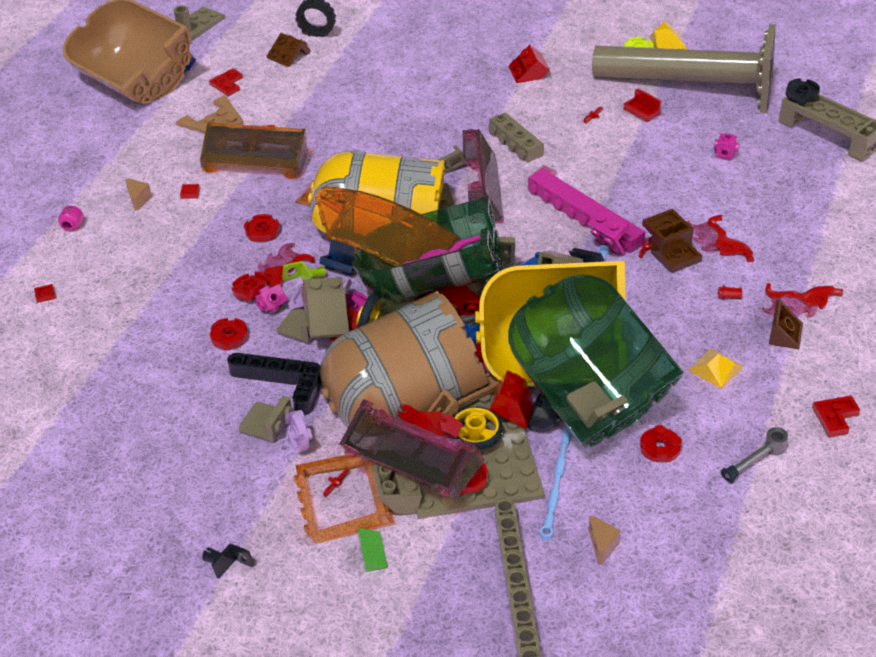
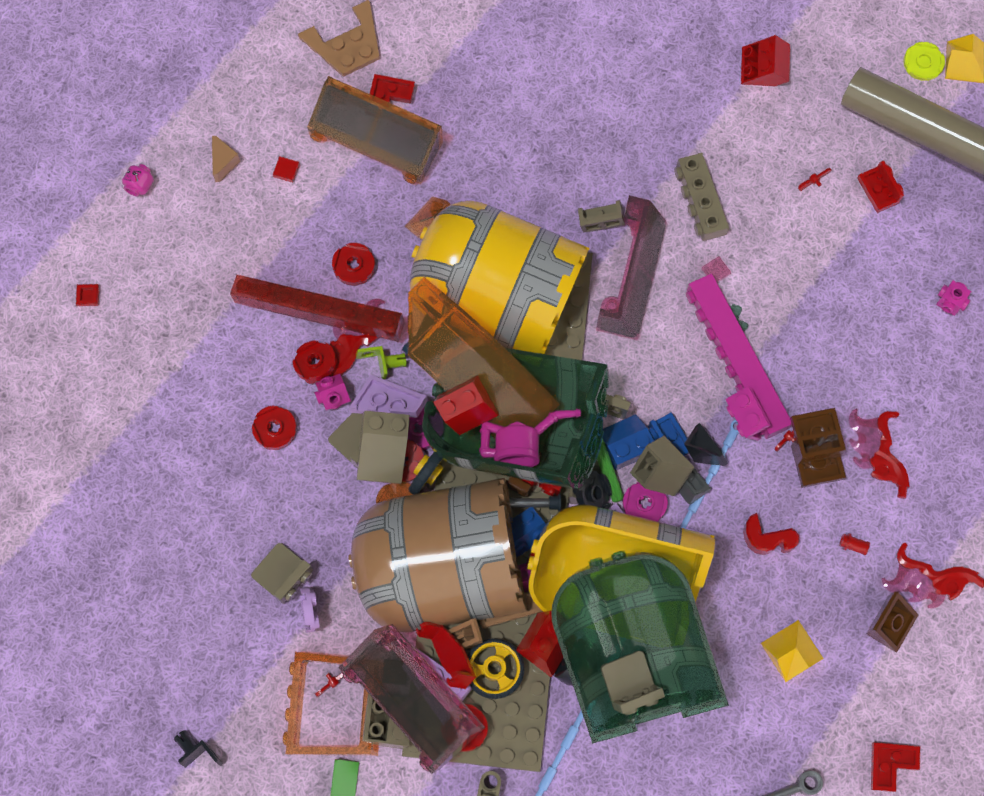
camera: 15 degrees right, 30 degrees up
(241, 252) = (317, 308): none -> clear red brick
(280, 370) = (316, 512): black beam -> none
(386, 248) = (466, 406): none -> red slope
(656, 435) = (699, 746): red plate -> none
(662, 305) = (767, 542): none -> red animal

